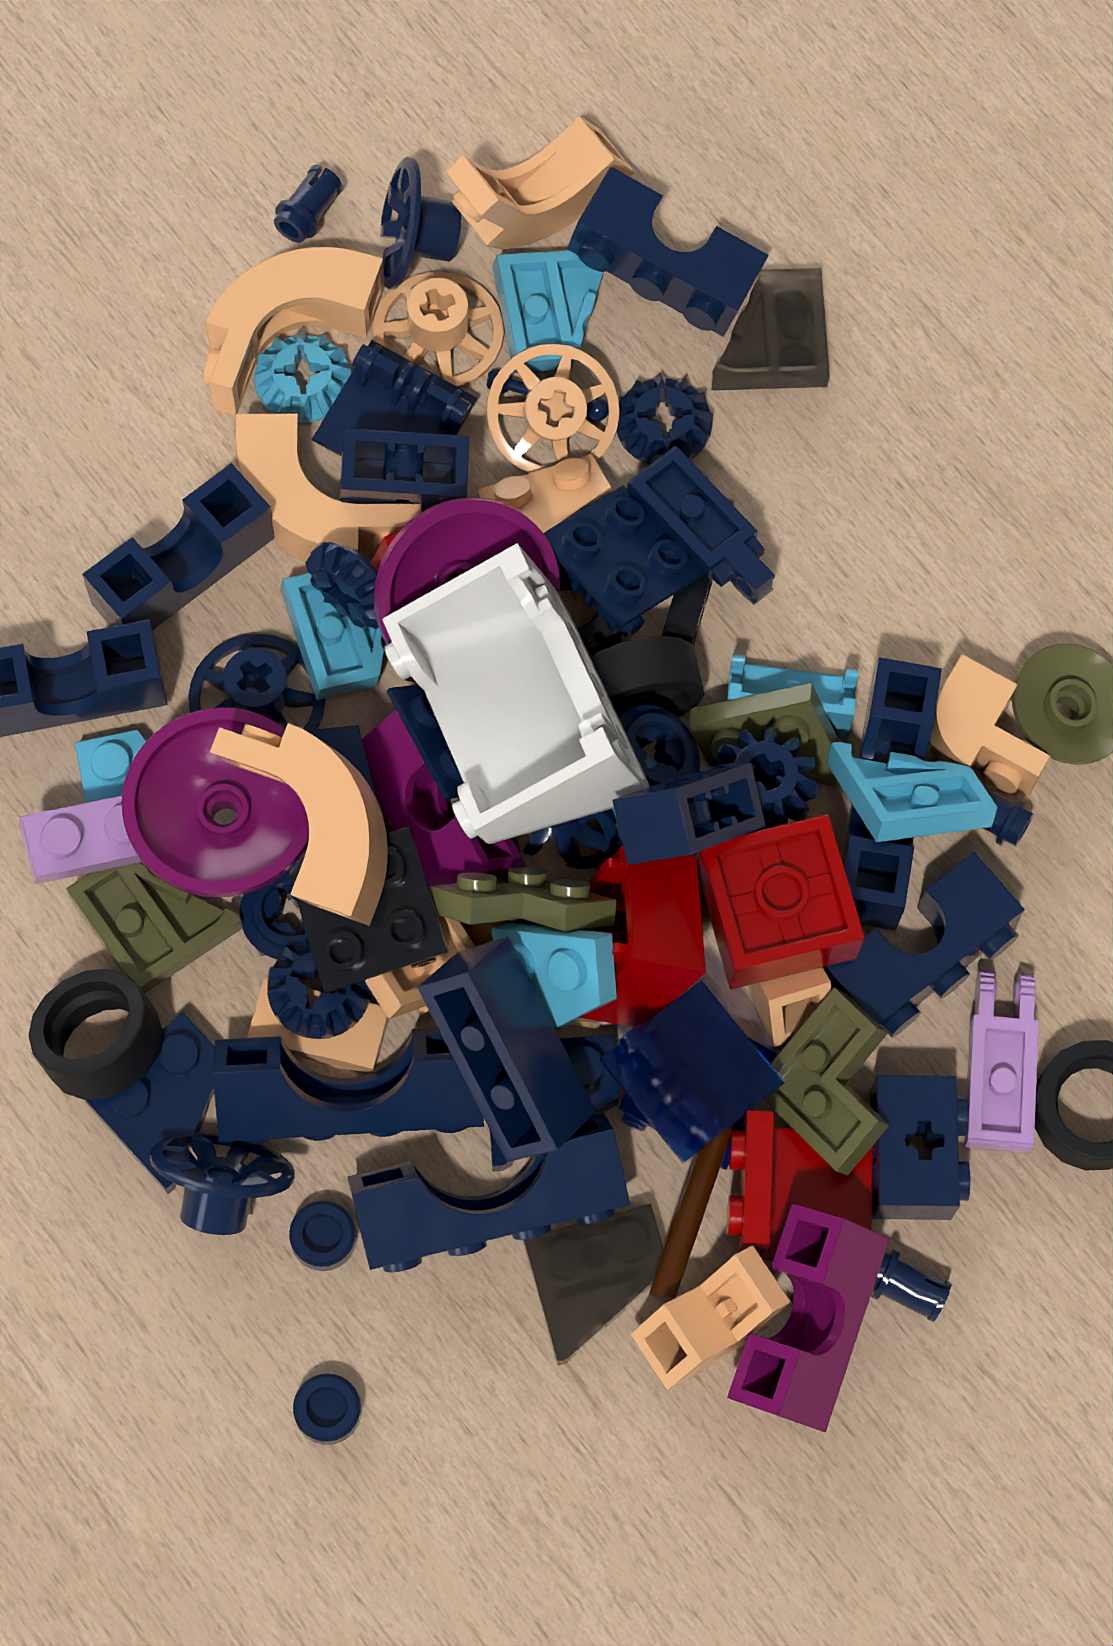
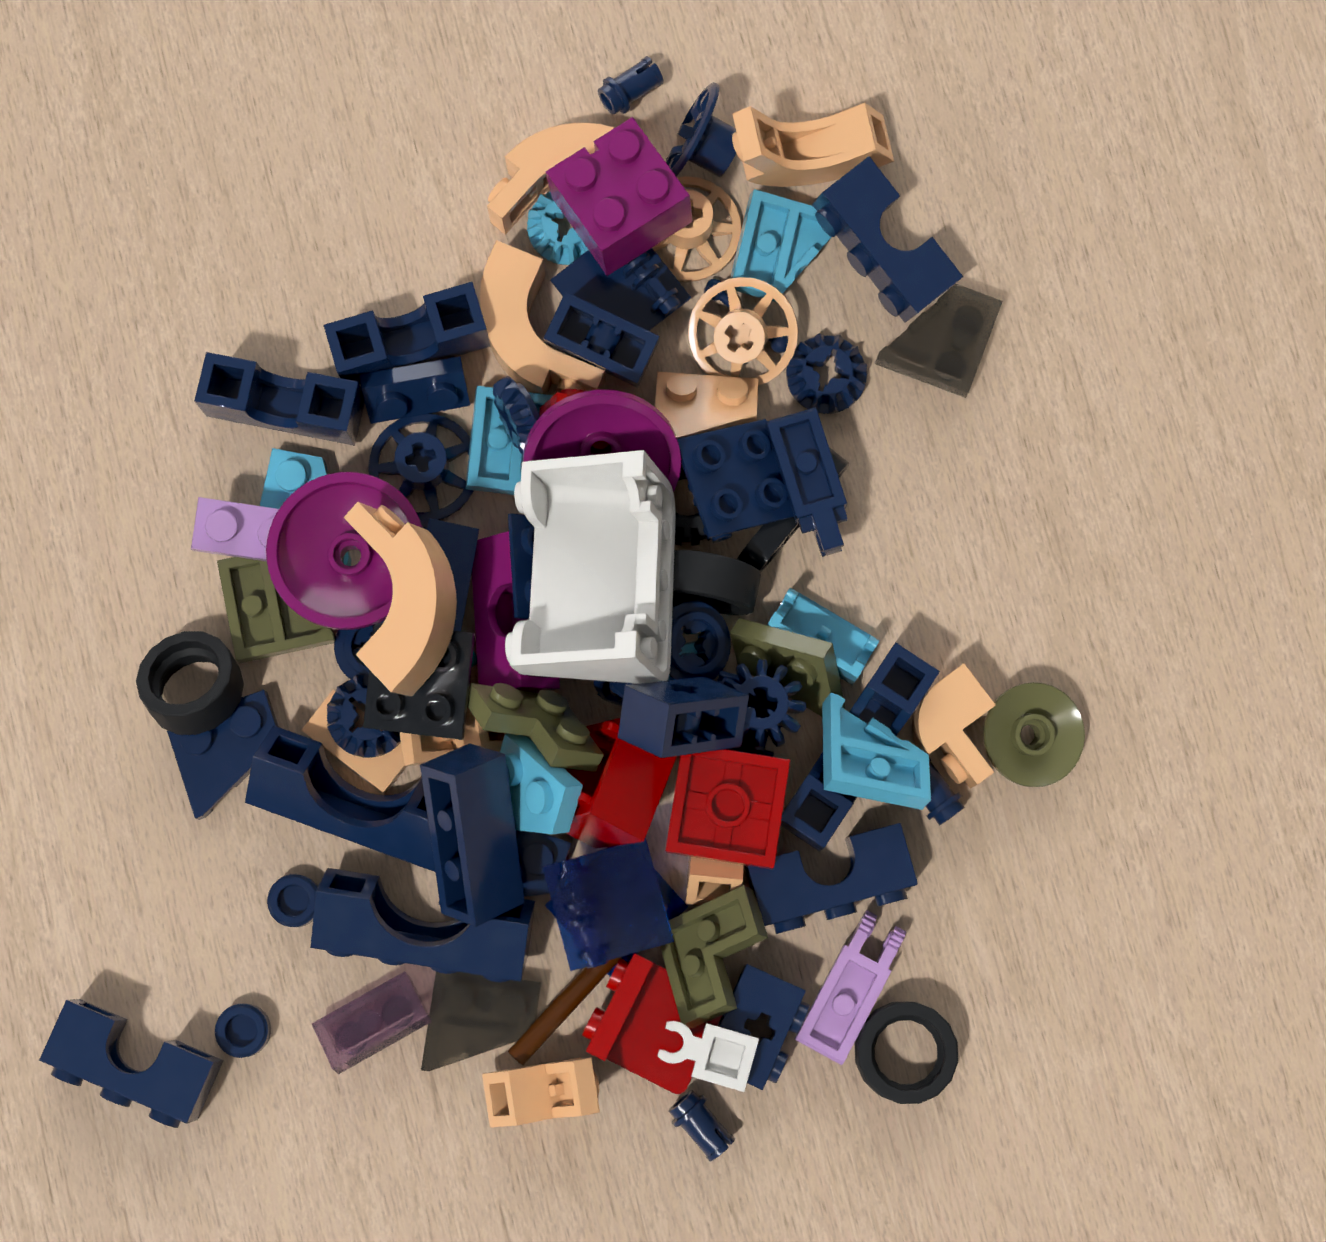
camera: 25 degrees right, 10 degrees up
(212, 613) = (414, 390): none -> dark blue plate
(219, 1187) = (230, 837): dark blue wheel -> none
(272, 1505) = (87, 1049): none -> dark blue arch
(358, 308) = (620, 196): none -> magenta piece
(476, 1330) = (371, 1022): none -> clear purple plate
(832, 1281) = (590, 1157): magenta arch -> none
(895, 1182) = (719, 1056): none -> white plate

